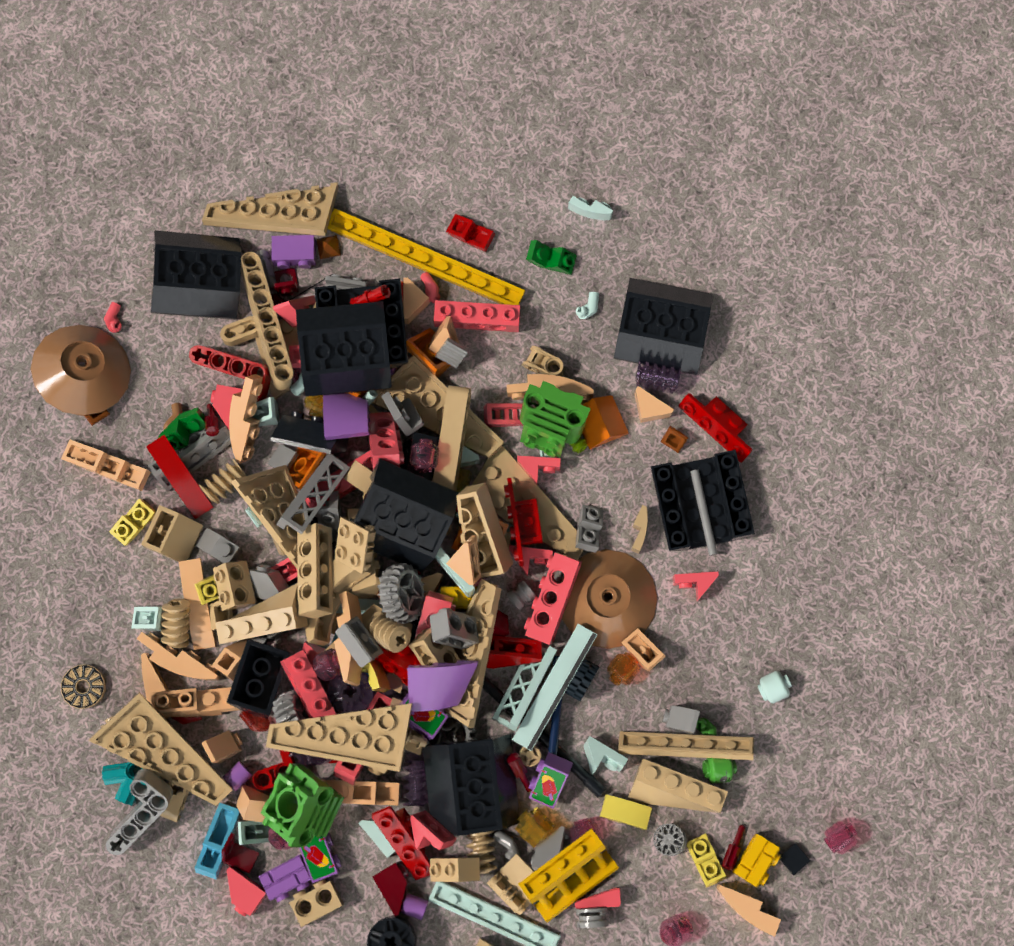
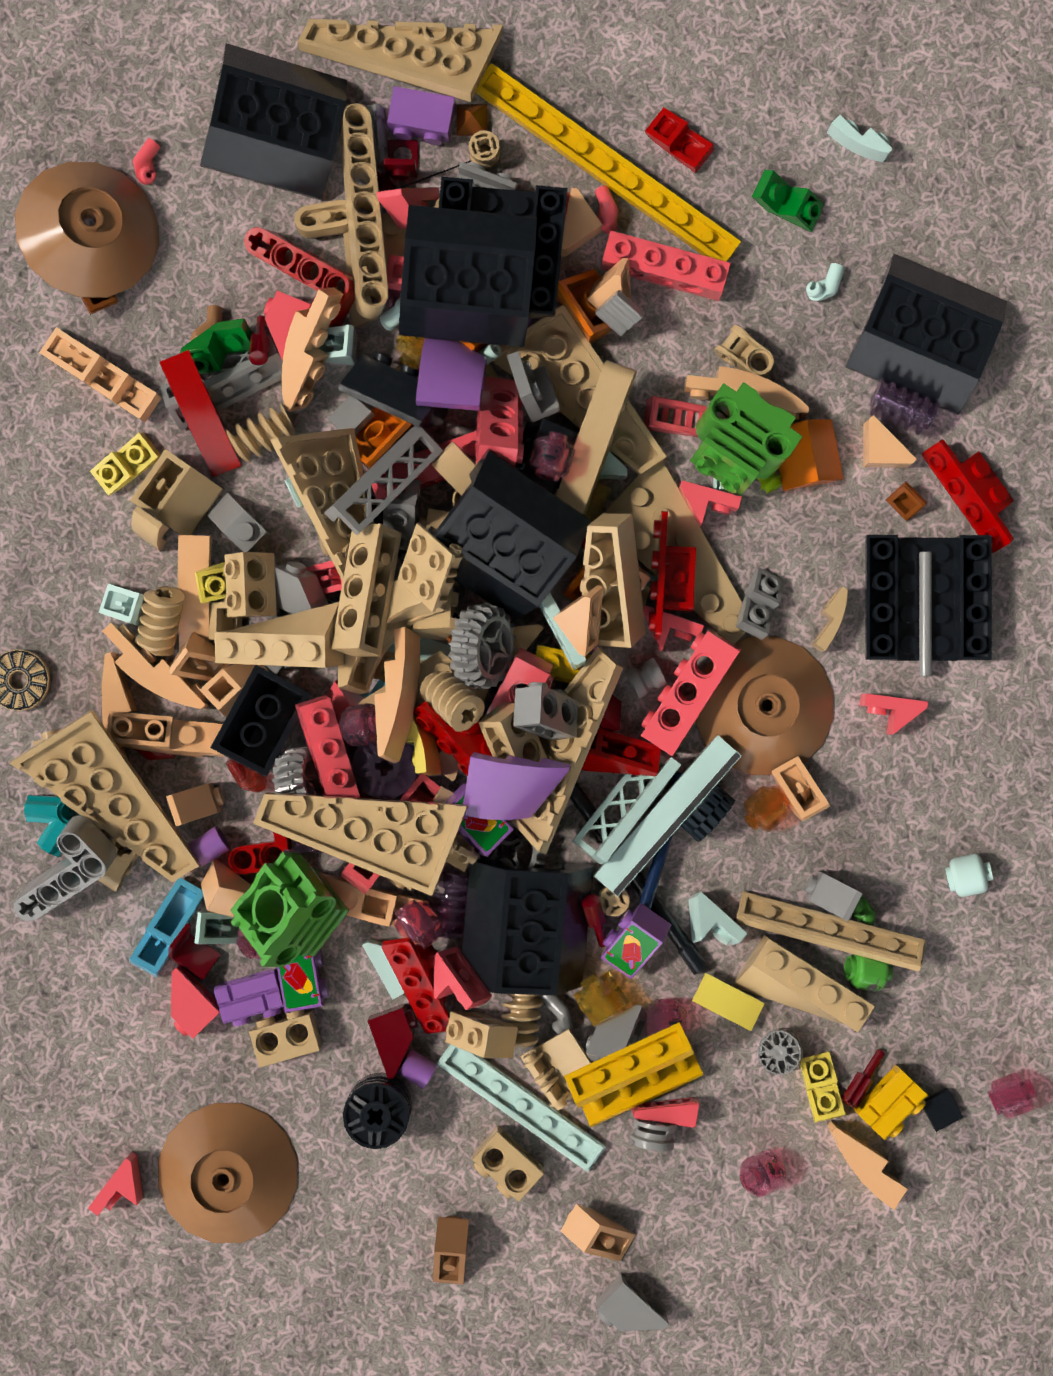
camera: 10 degrees right, 10 degrees up
(157, 561) = (148, 528): none -> tan slope
(206, 645) = (196, 660): none -> light nougat slope
(342, 268) = (485, 155): none -> tan wheel
(358, 641) = (409, 704): light grey slope -> none
(372, 295) = (522, 206): red pin -> none
(394, 795) = (418, 923): none -> clear pink head

